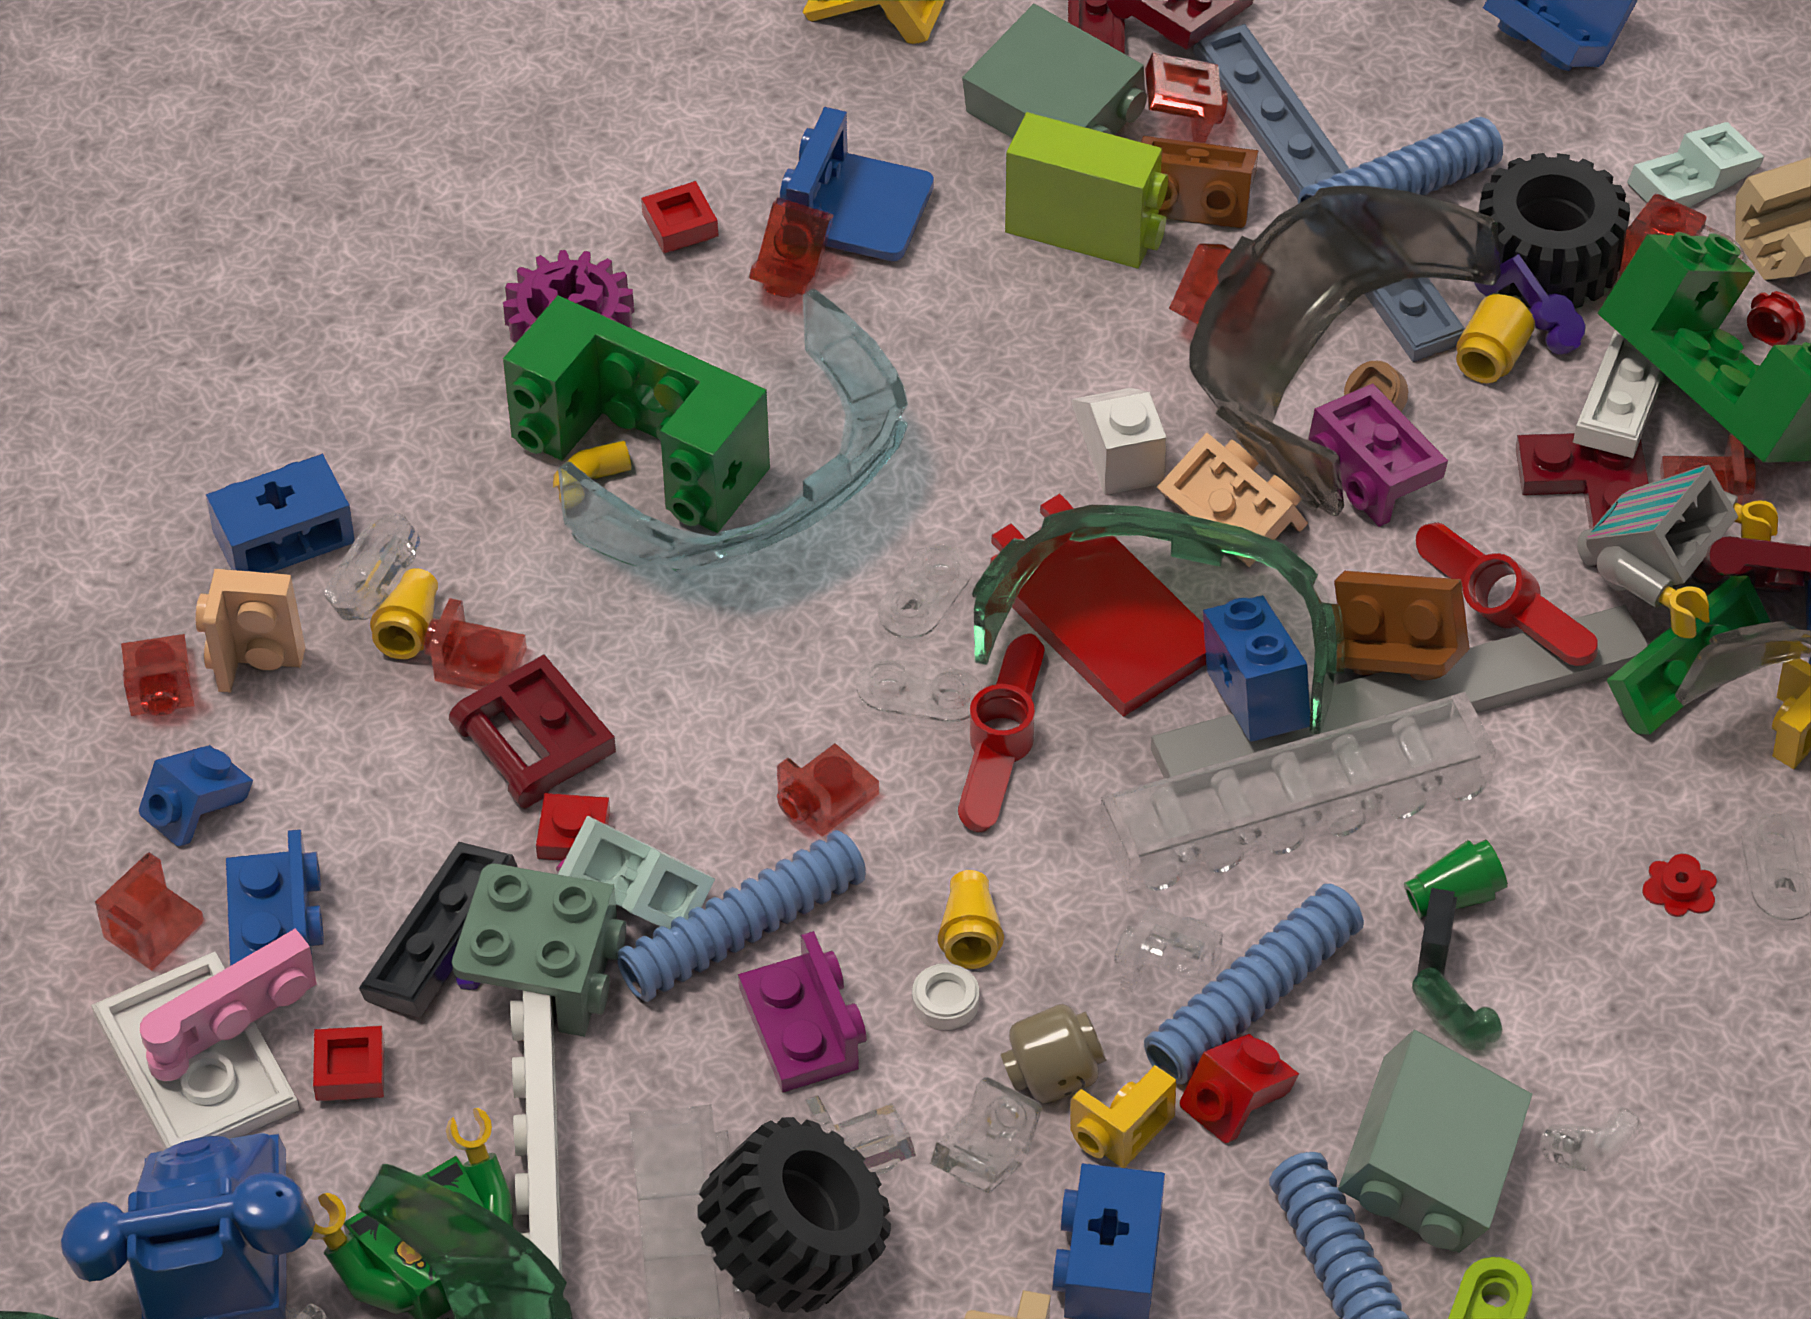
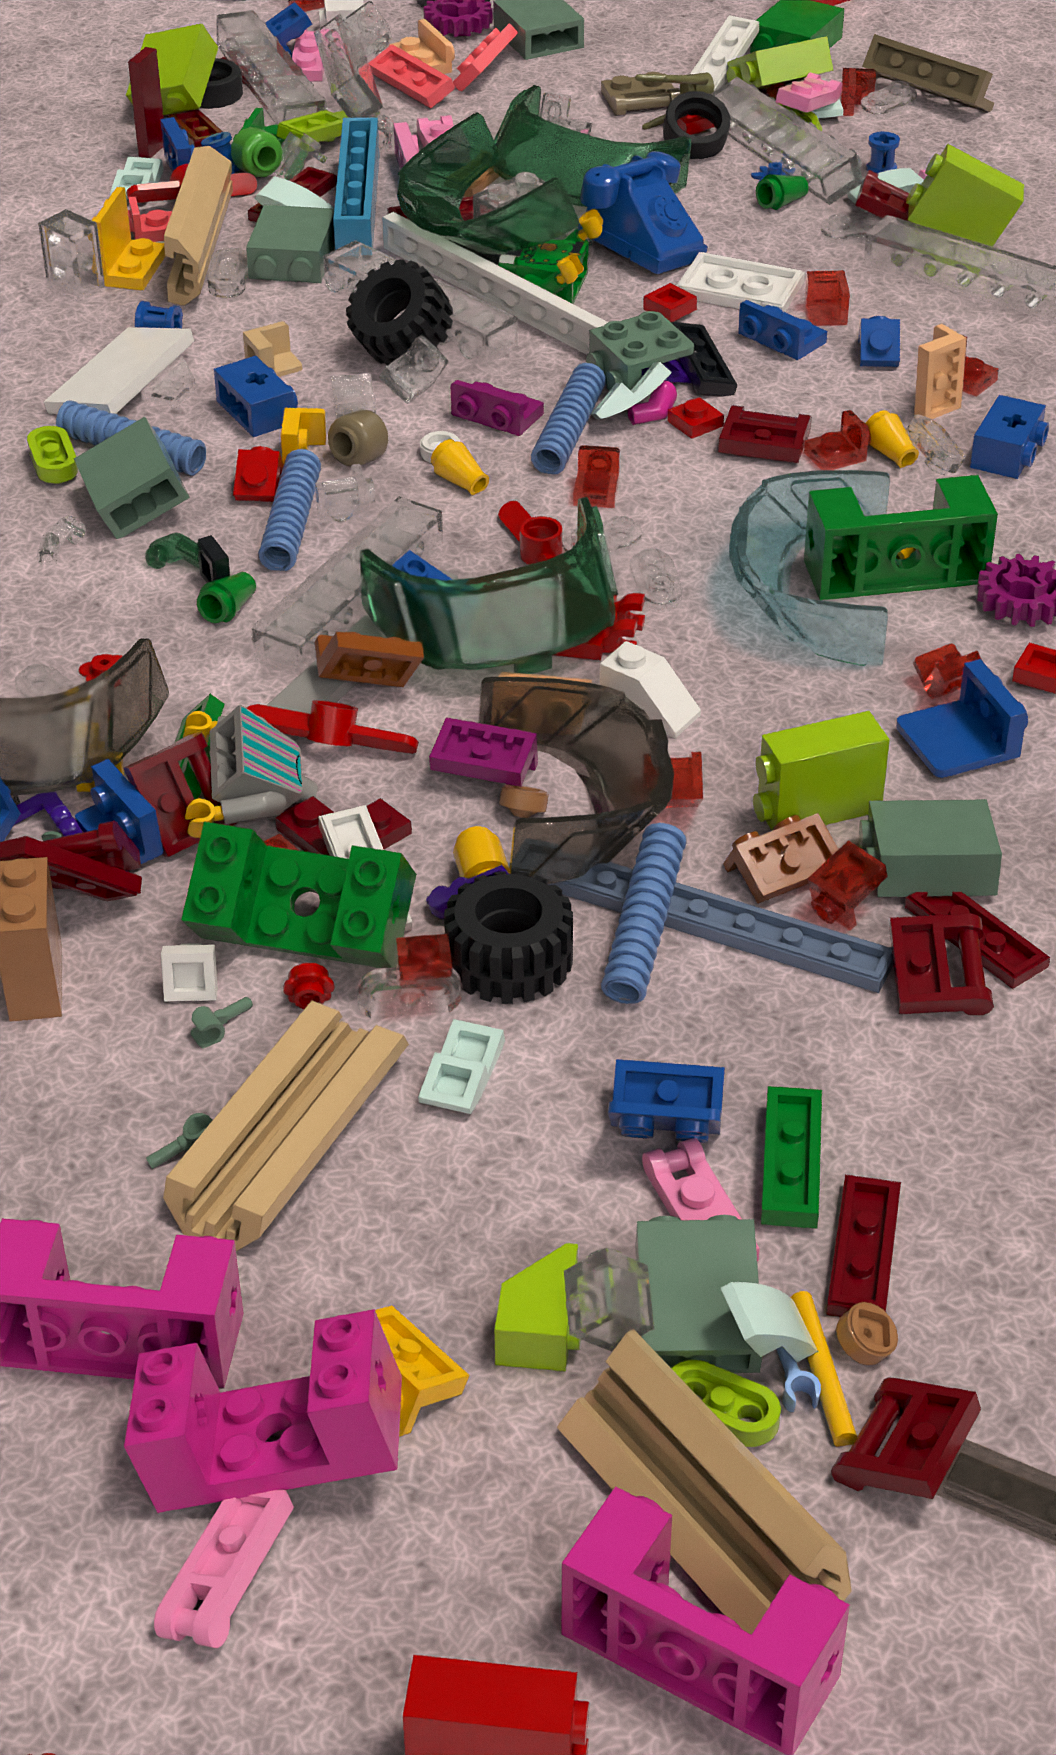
camera: 140 degrees right, 10 degrees down
(226, 1004) = (737, 274): bright pink plate -> none

